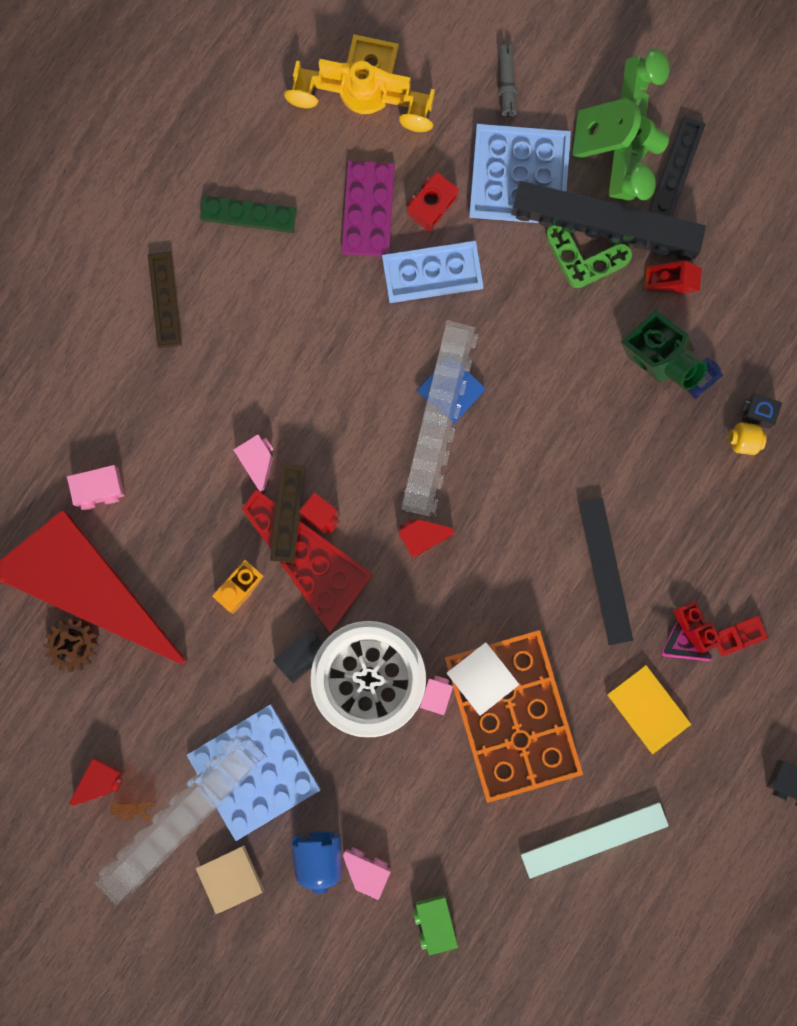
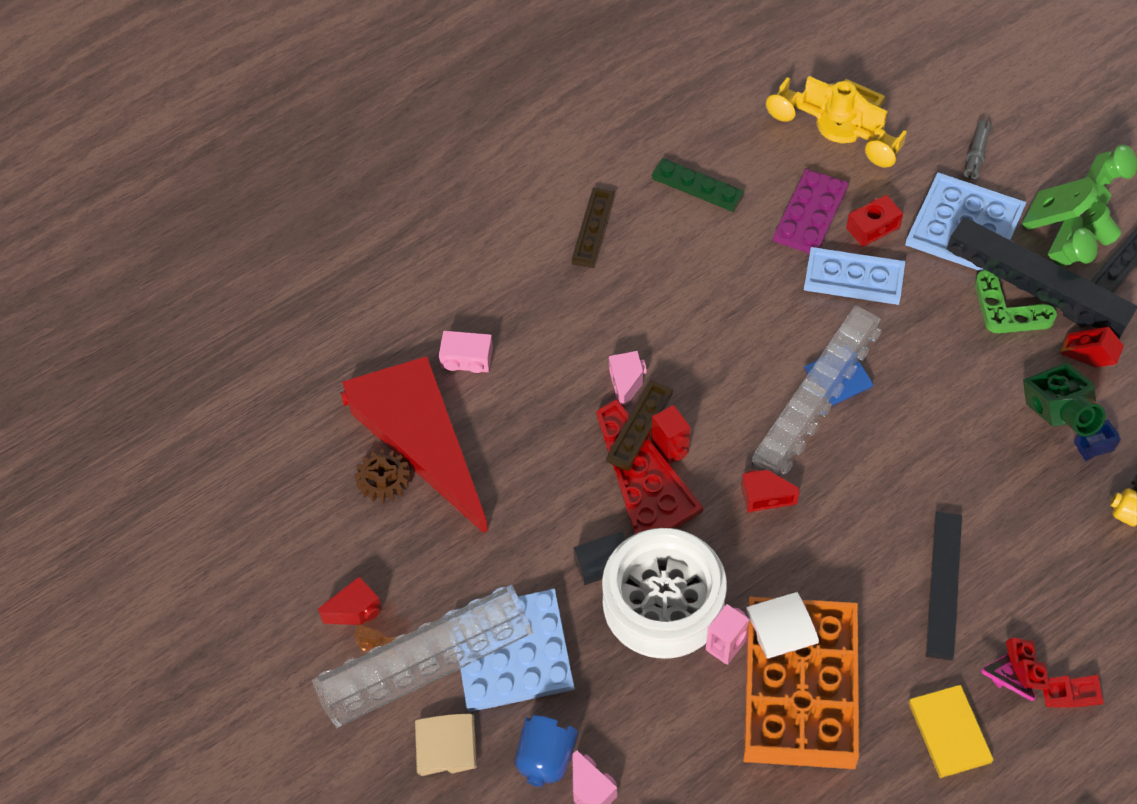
camera: 20 degrees right, 25 degrees down
(238, 587) = (564, 476): light orange slope -> none

